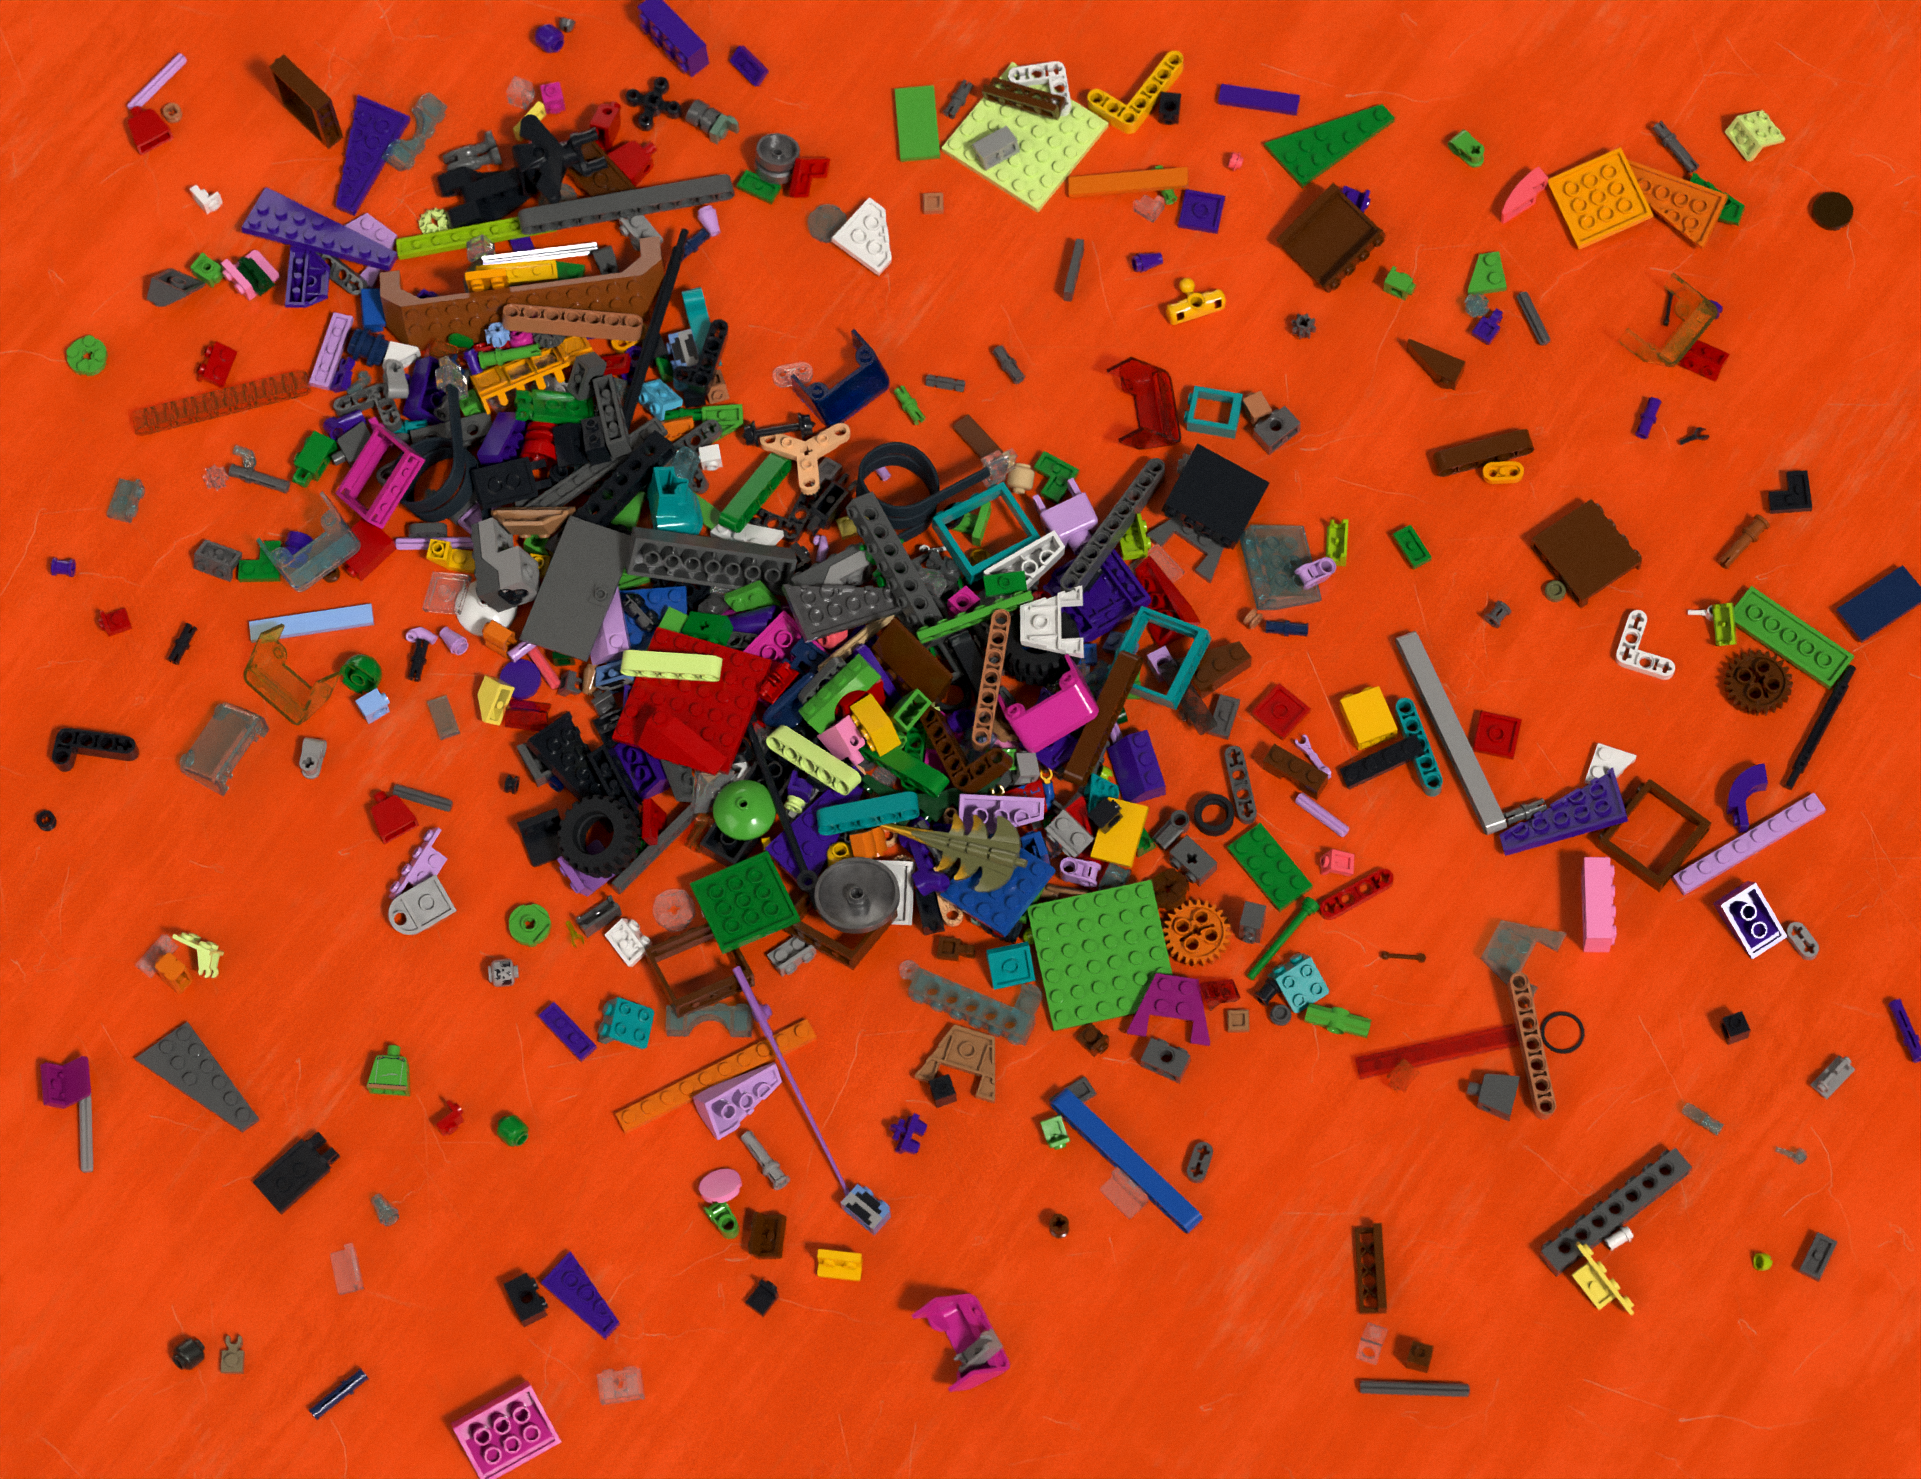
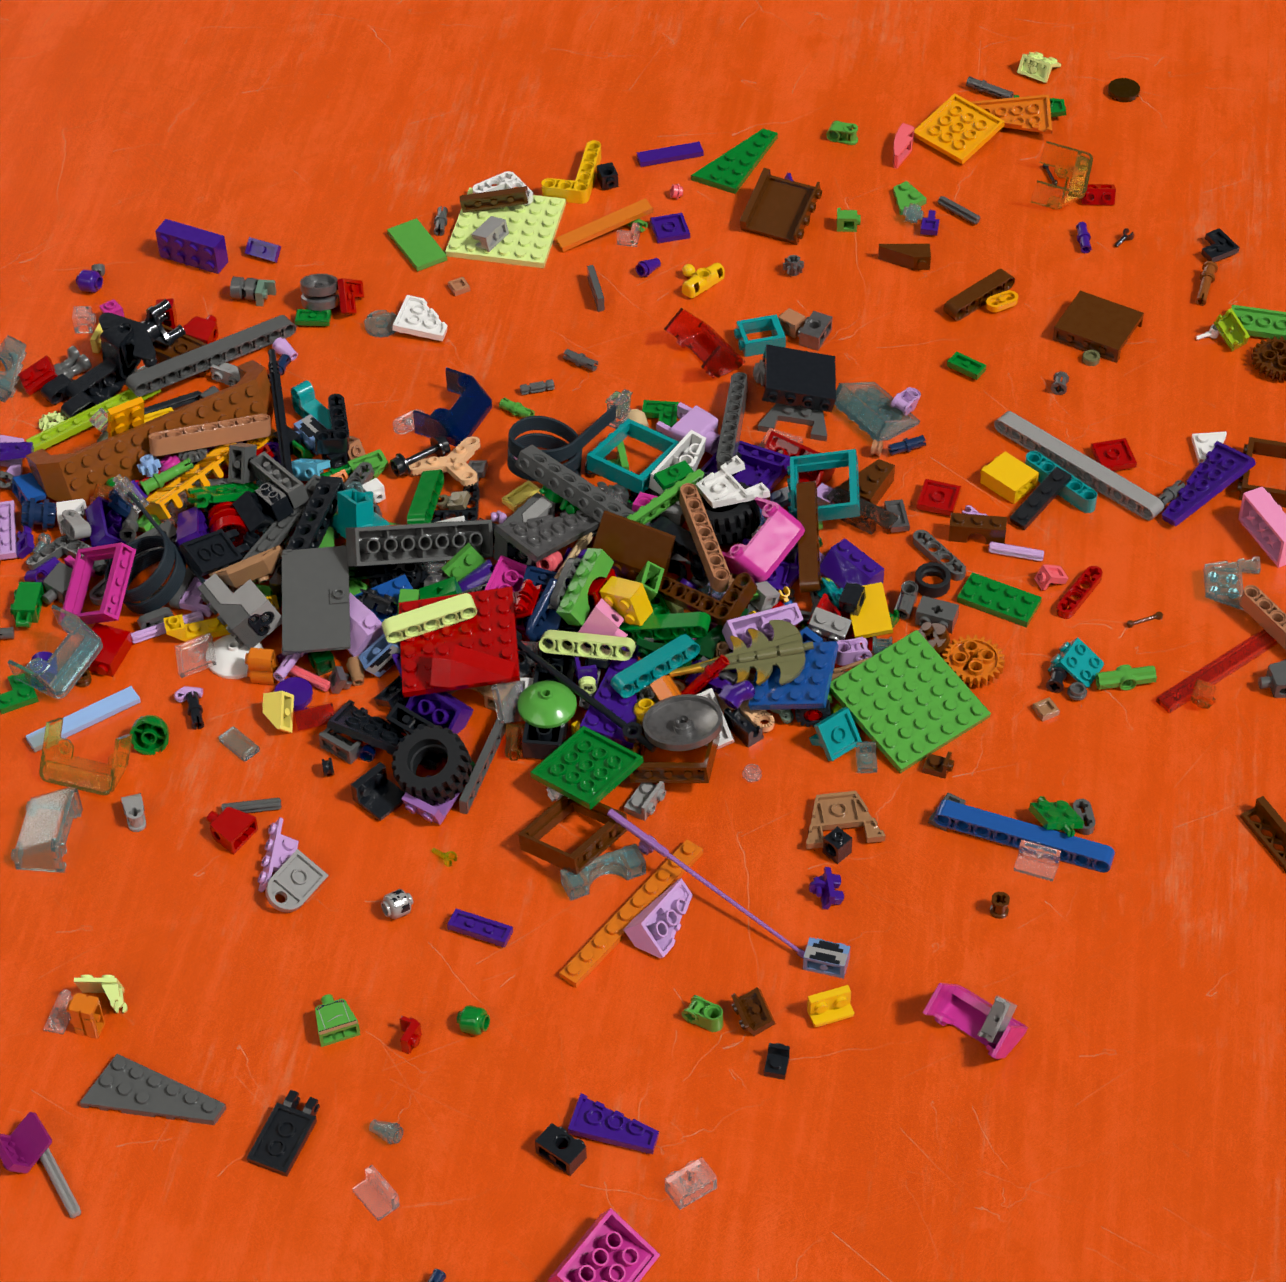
camera: 30 degrees left, 20 degrees down
(373, 705) = (171, 755): light blue brick -> none
(441, 156) = (37, 375): none -> red plate
(456, 643) = (221, 686): lavender cone -> none
(529, 913) = (403, 871): bright green plate -> none
(599, 916) = (460, 833): dark grey hinge -> none
(603, 702) = (377, 681): flat silver tile -> none
(626, 1023) = (526, 899): teal bracket -> none
(628, 940) = (495, 841): white bracket -> none
(653, 104) = (198, 294): black gear -> none
(653, 821) = (470, 744): red plate -> none
(676, 898) = (520, 796): clear plate -> none
(680, 780) = (474, 703): dark grey wing -> none
(720, 1186) = (688, 987): bright pink tile -> none
(770, 1167) = (723, 960): light grey pin -> none
(786, 505) = (456, 501): none -> dark tan plate
(831, 504) = (493, 487): black hinge -> none
(914, 846) = (711, 672): none -> red pin
(951, 948) = (780, 745): reddish brown plate -> none
(975, 437) = (581, 412): reddish brown tile -> none
(984, 1005) = (822, 777): clear light blue brick -> none
(1055, 1132) = (950, 839): bright green bracket -> none
(1134, 542) = (753, 428): lime bracket -> none
(1168, 1153) = (1056, 815): none -> green plate
(1172, 1070) = (1007, 755): dark grey brick -> none
(1176, 999) = (987, 708): magenta wing -> none
(1219, 992) = (1016, 693): clear red slope -> none
(1252, 922) = (1014, 633): dark grey brick -> none
(1308, 907) = (1048, 612): green piece -> none
(1337, 542) = (908, 378): lime hinge -> none
(1636, 655) = (1200, 375): white beam -> none

